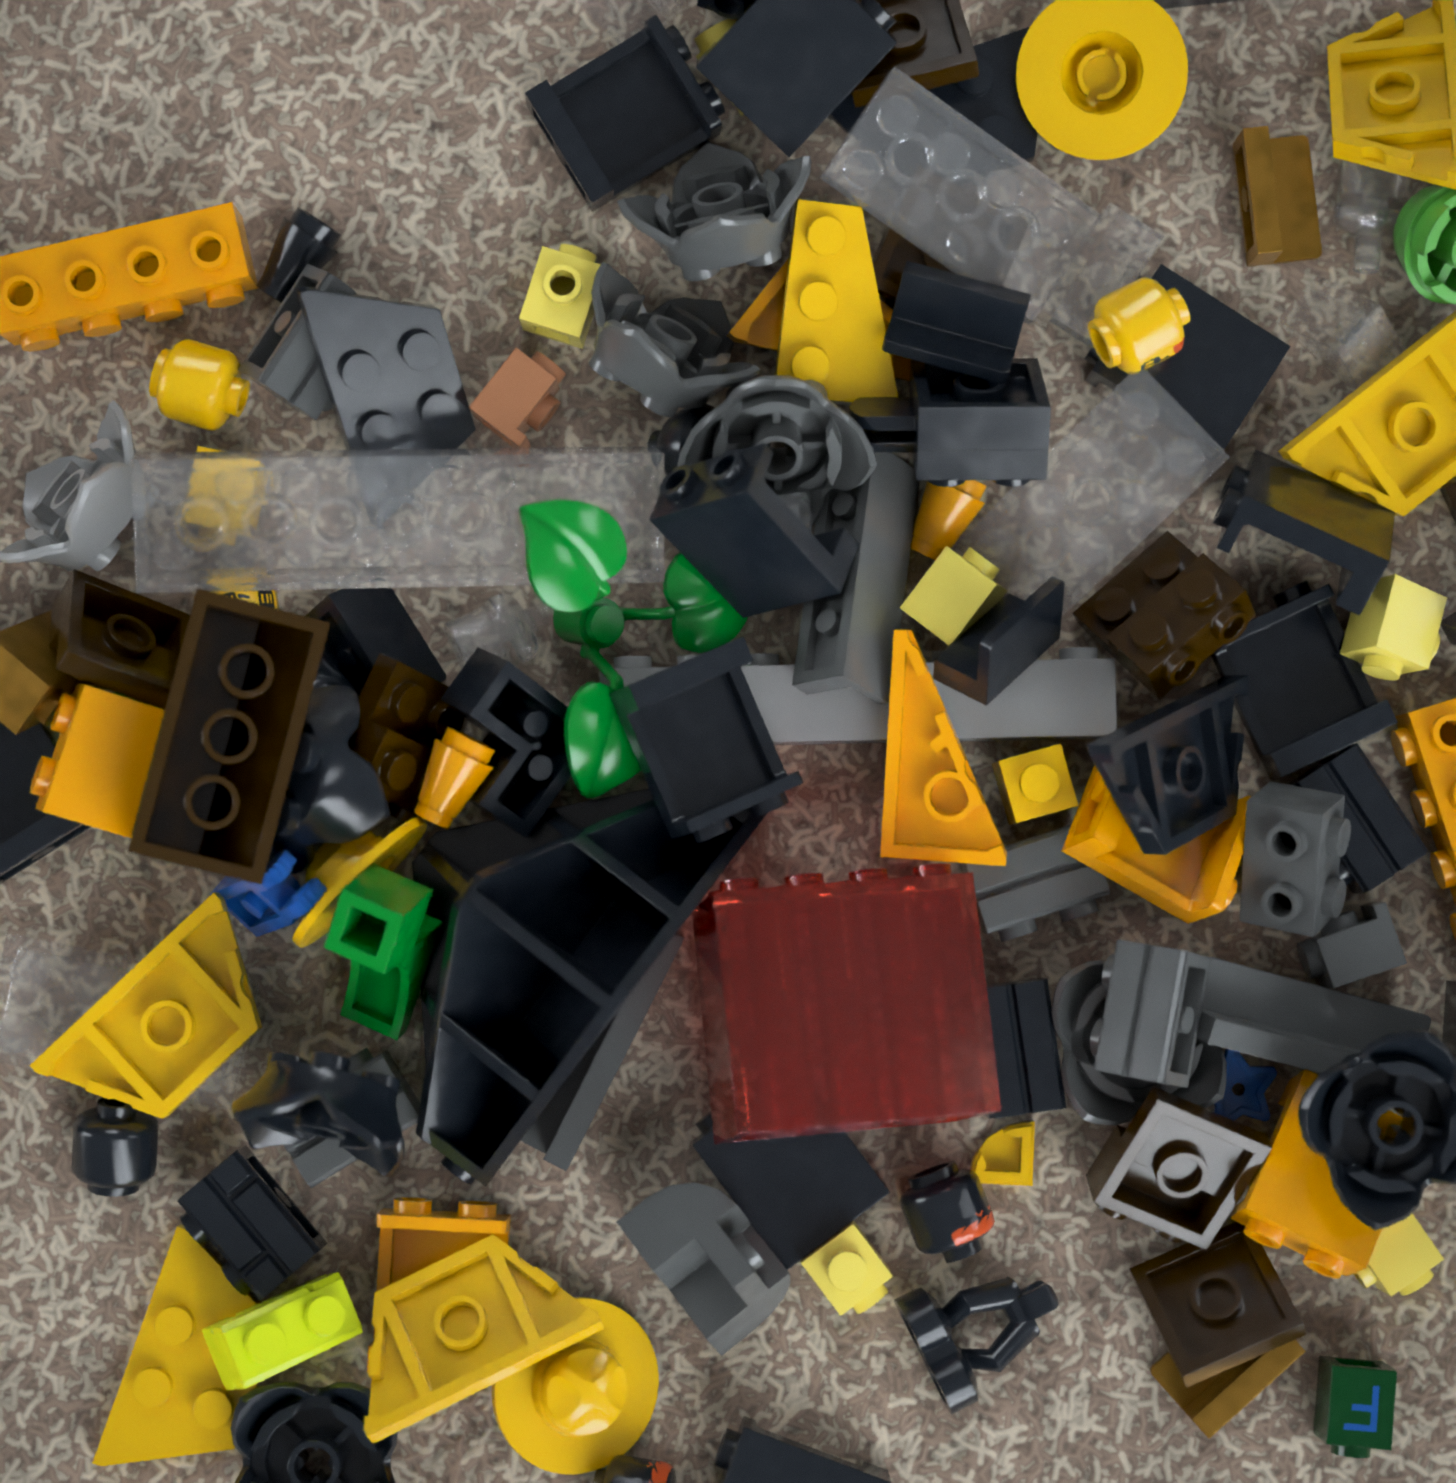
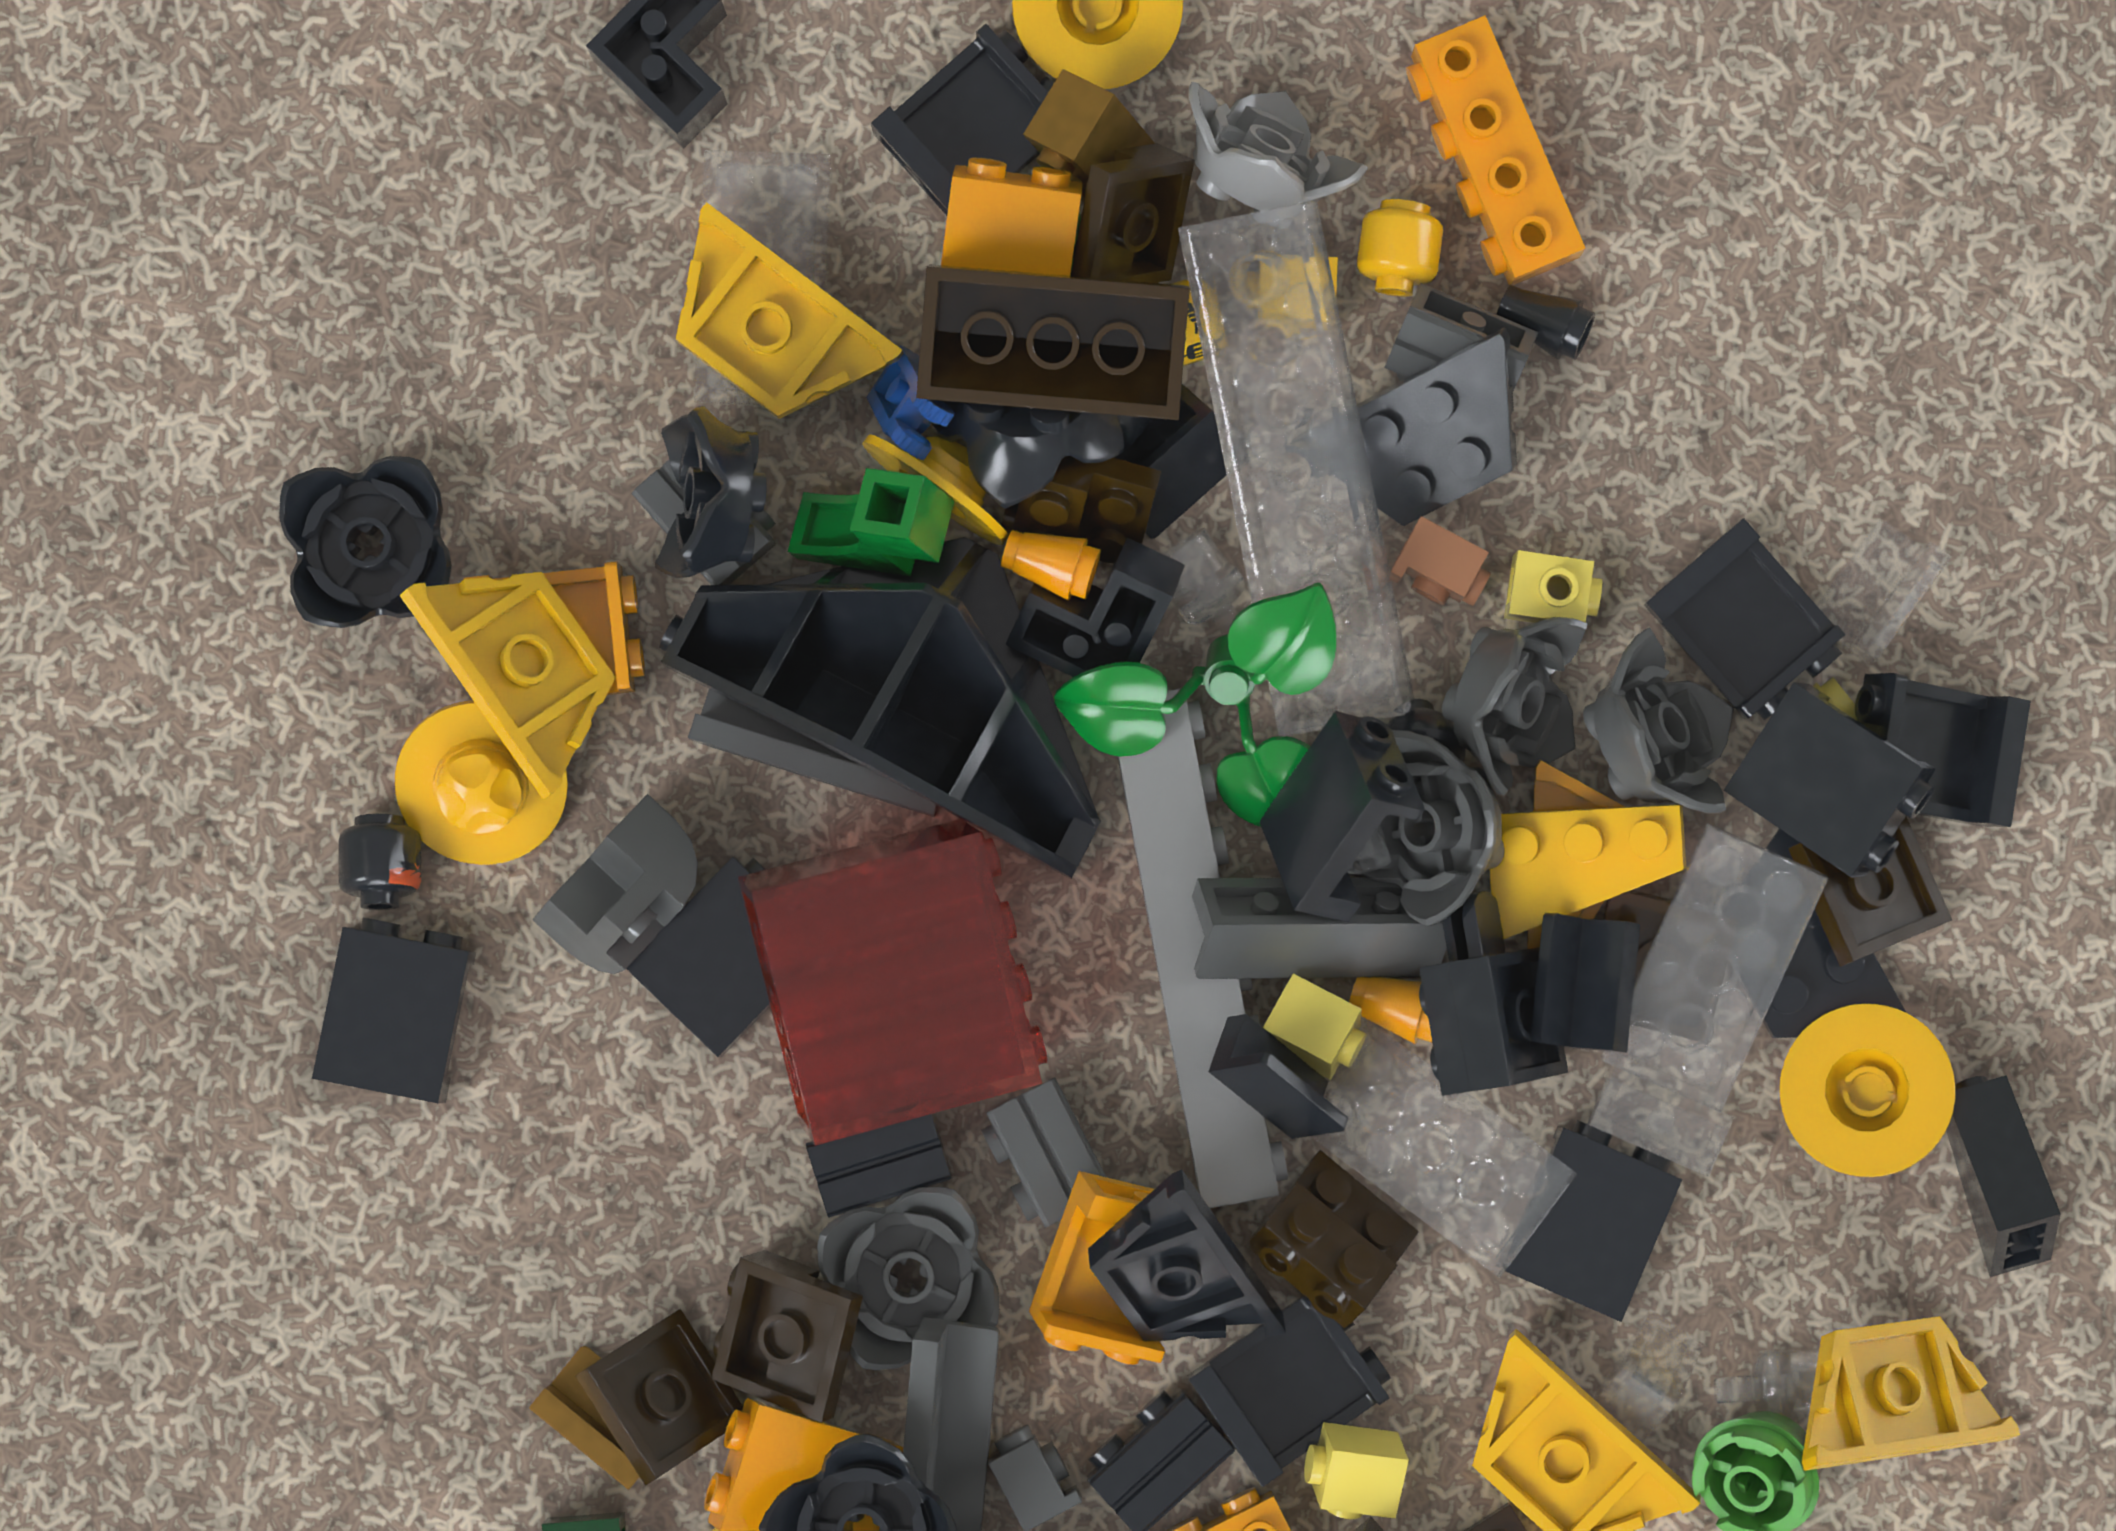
camera: 85 degrees right, 0 degrees up
(114, 1148) = (639, 296): black head -> none
(171, 1388) = (444, 404): yellow wing -> none
(249, 1224) = (586, 439): black brick -> none
(282, 1331) = (490, 489): neon yellow brick -> none
(703, 743) = (1125, 801): black panel -> none
(849, 1270) = (636, 1029): light yellow brick -> none
(929, 788) = (1120, 1030): light orange wing -> none
(947, 1211) = (707, 1118): black head -> none
(951, 1365) = (558, 1148): black piece -> none
(1007, 1156) = (770, 1169): yellow tile -> none
(1034, 784) = (1141, 1137): yellow brick -> none
(1138, 325) = (1611, 1163): yellow head -> none
(1150, 1013) = (933, 1280): dark grey brick -> none
(1255, 1083) = (884, 1404): blue plate -> none
(1276, 197) = (1775, 1291): pearl gold panel -> none
(1293, 858) = (1109, 1402): dark grey brick -> none
(1312, 518) = (1450, 1368): black panel -> none

